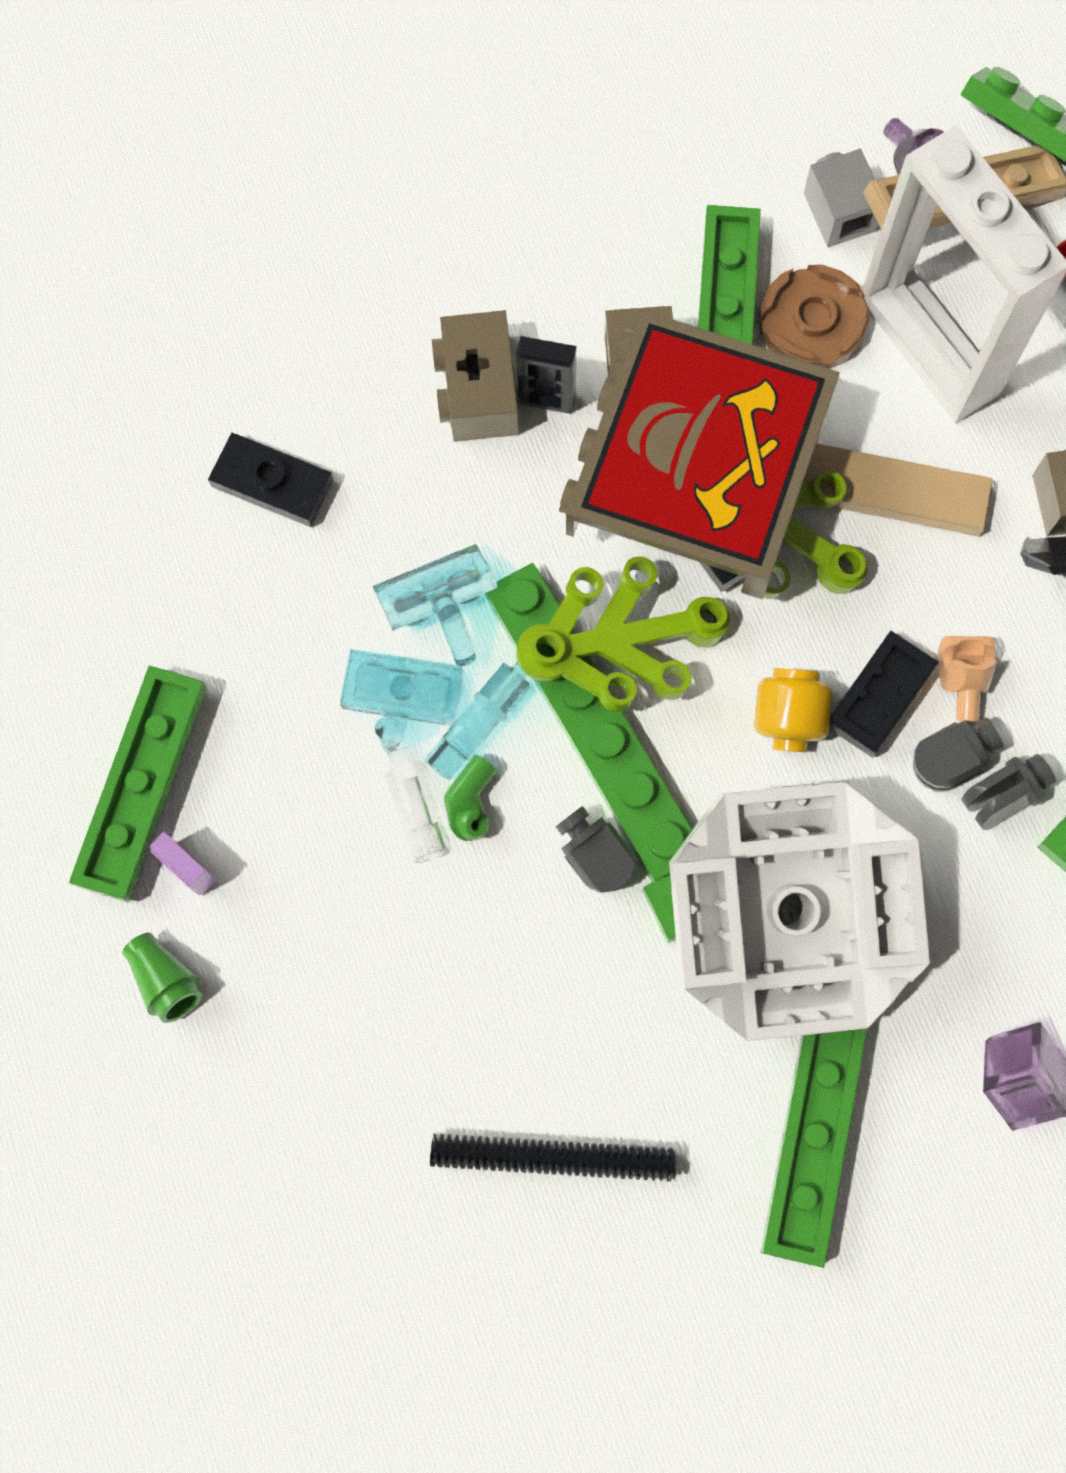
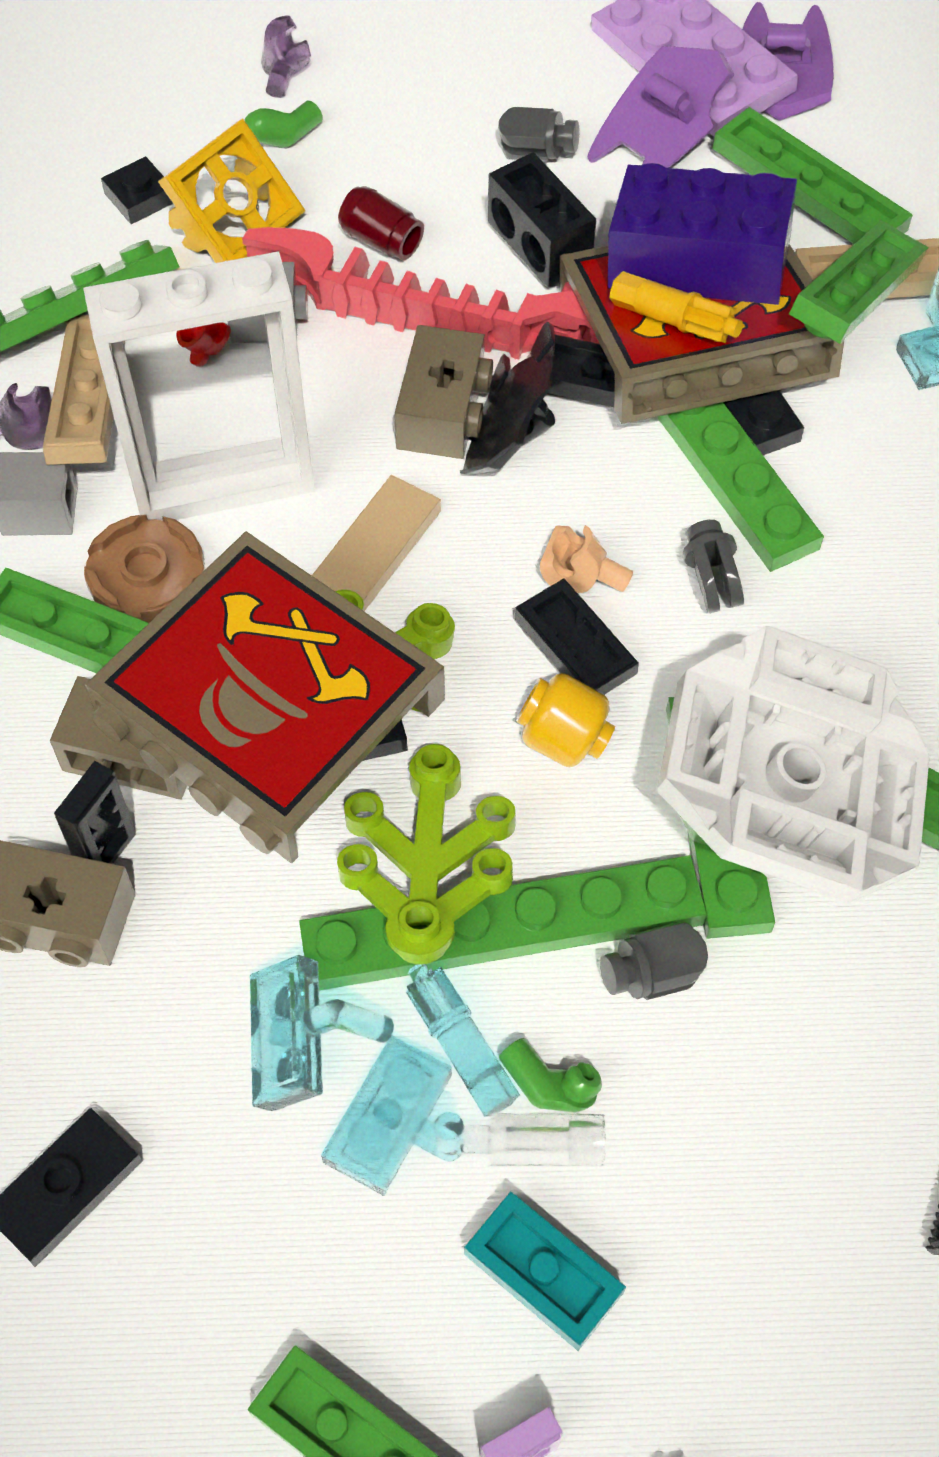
camera: 75 degrees left, 15 degrees down
(315, 841) = (544, 1270): none -> teal plate
(955, 754) = (661, 600): dark grey arm -> none

